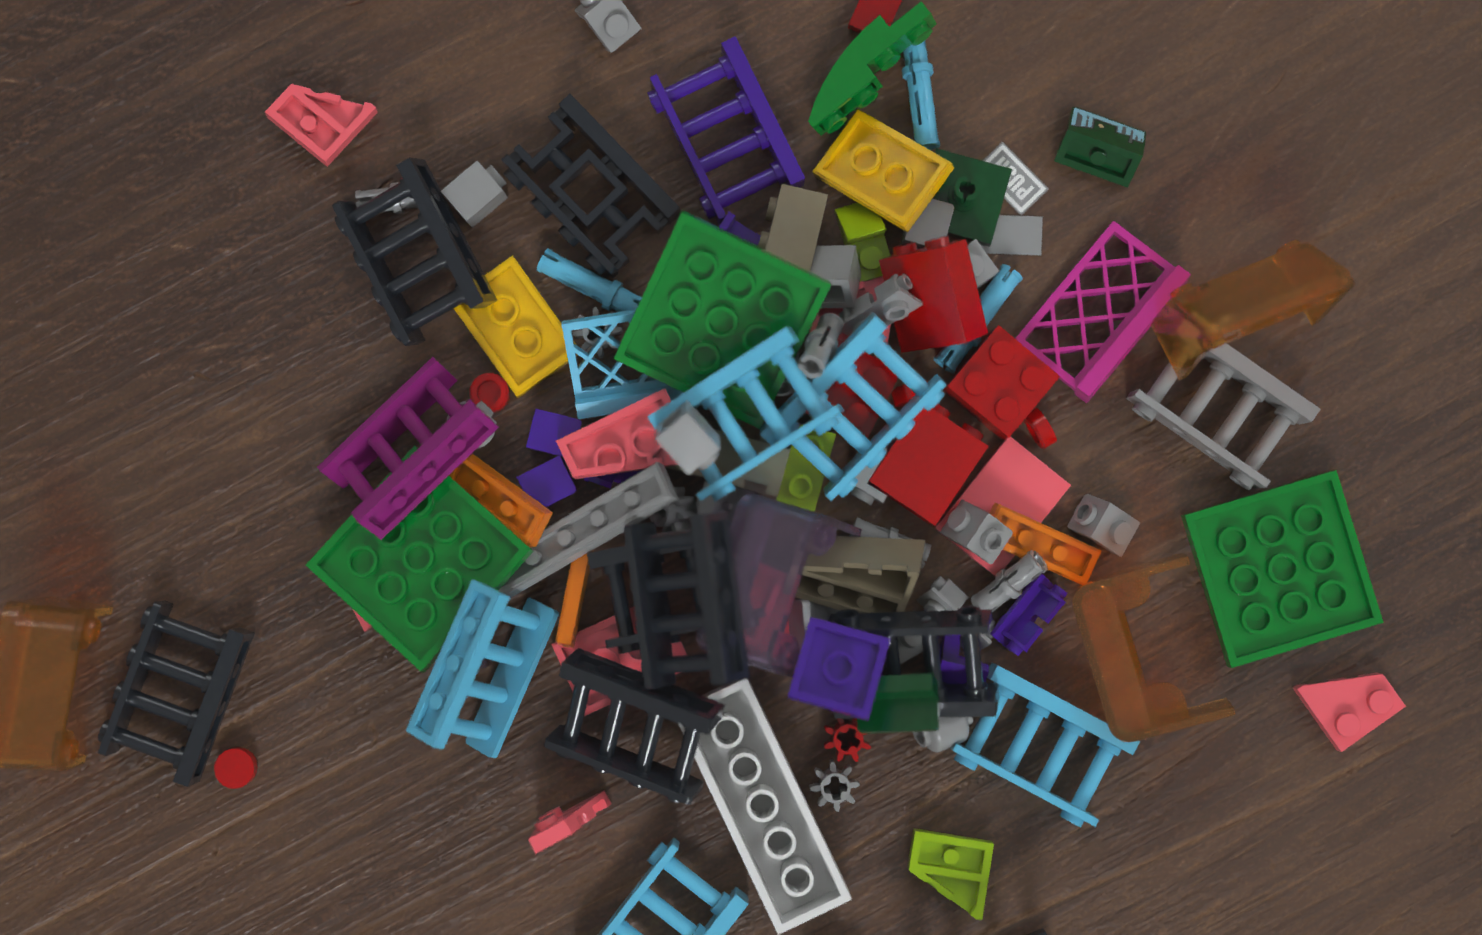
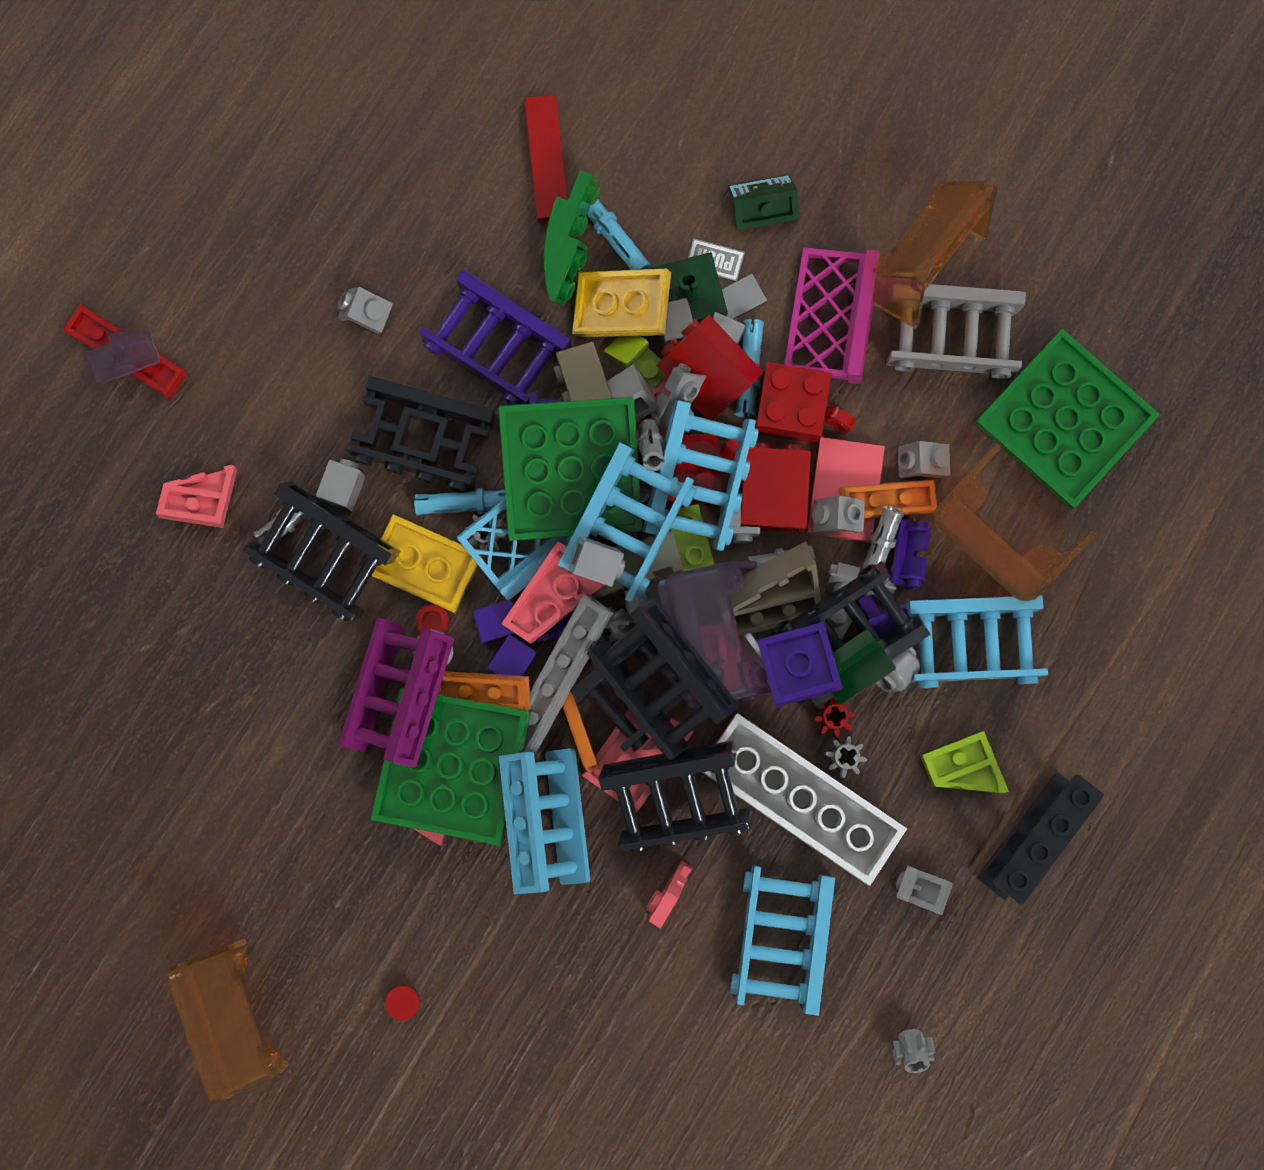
camera: 25 degrees left, 5 degrees down
(201, 722) = (360, 982): black fence -> none
(1350, 706) = (1173, 488): coral wing -> none

